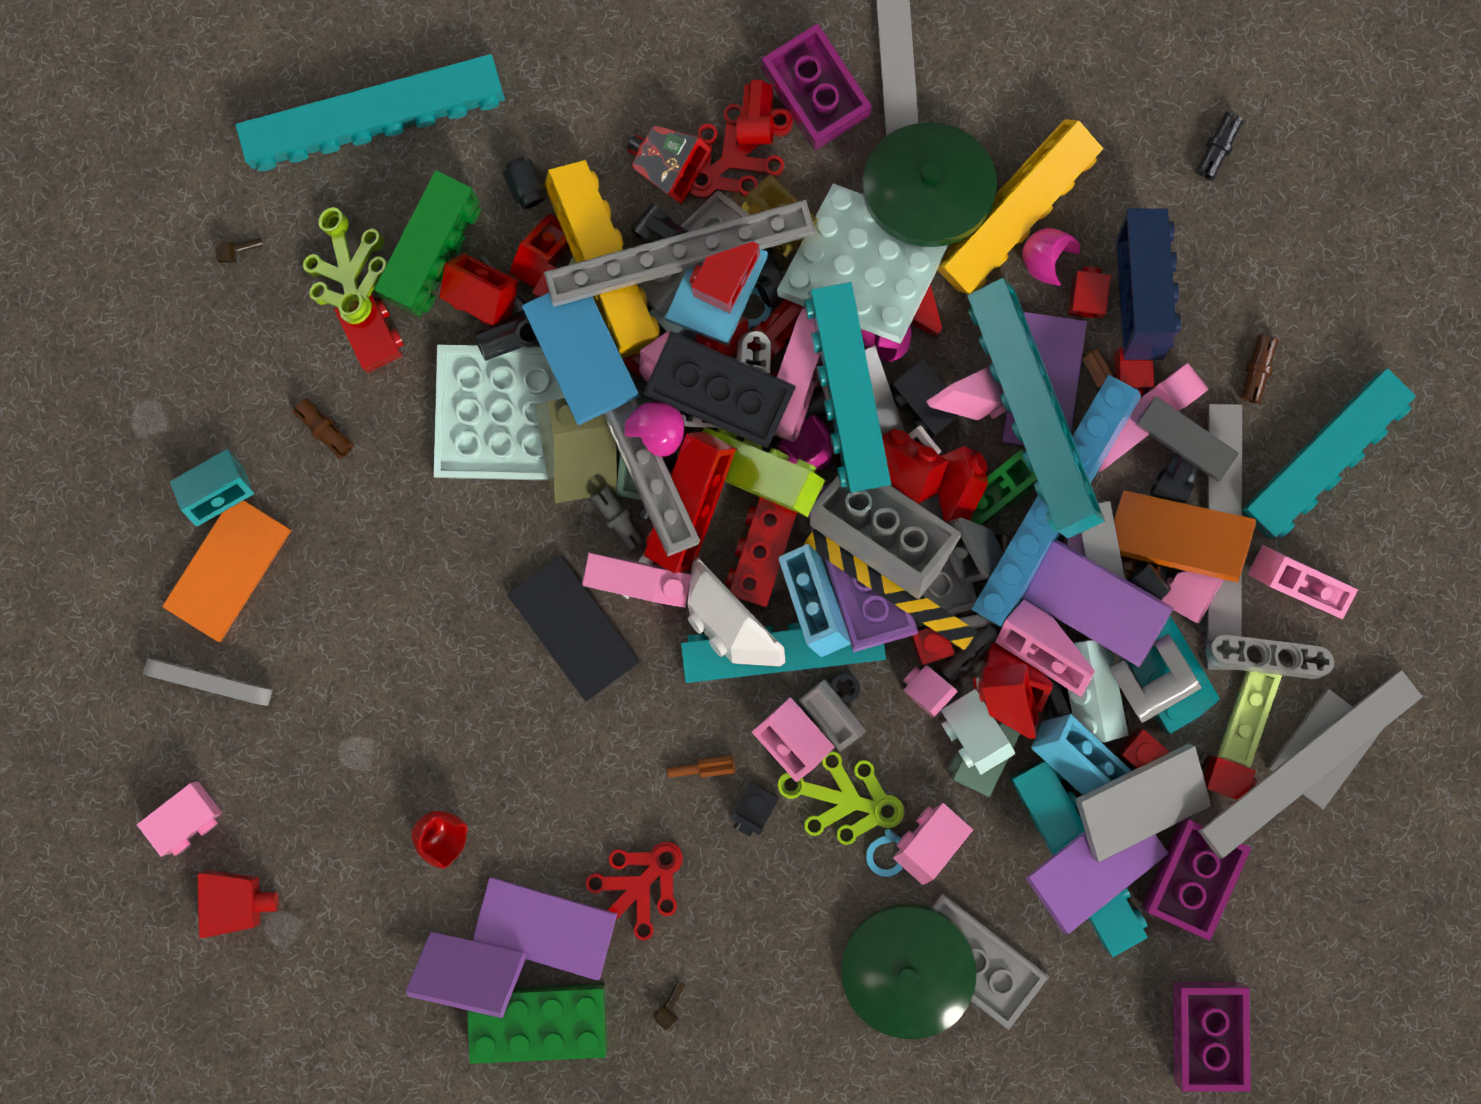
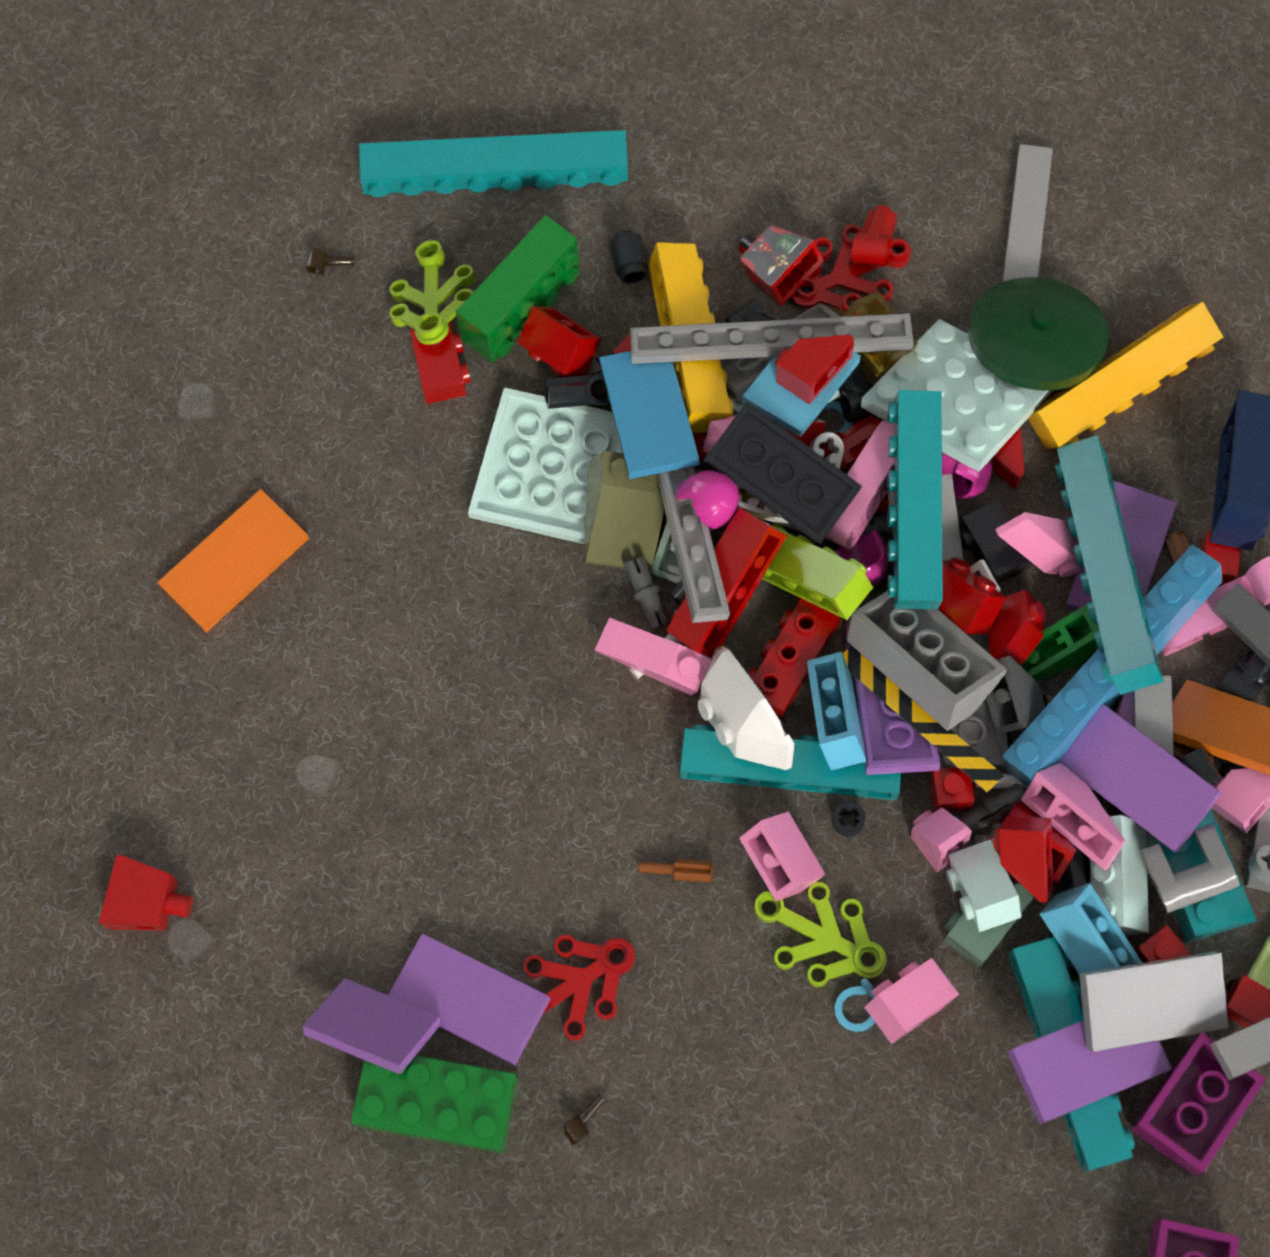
camera: 15 degrees right, 15 degrees down
(180, 819) = (113, 799): bright pink brick -> none
(207, 681) = (182, 665): light grey beam -> none
(211, 487) = (240, 475): teal brick -> none
(323, 428) = (368, 445): reddish brown pin -> none
(439, 837) = (381, 875): red hair -> none
(541, 247) = (624, 314): red slope -> none
(573, 628) = (574, 696): black tile -> none
(753, 809) = (723, 925): black bracket -> none
(816, 87) = (941, 224): magenta brick -> none
(832, 715) = (829, 843): light grey tile -> none
(908, 971) = (856, 1138): dark green dish -> none
(1003, 976) = (933, 1147): light grey tile -> none
(1043, 250) = (1144, 421): dark pink hair -> none
(1089, 293) = (1184, 476): red brick -> none

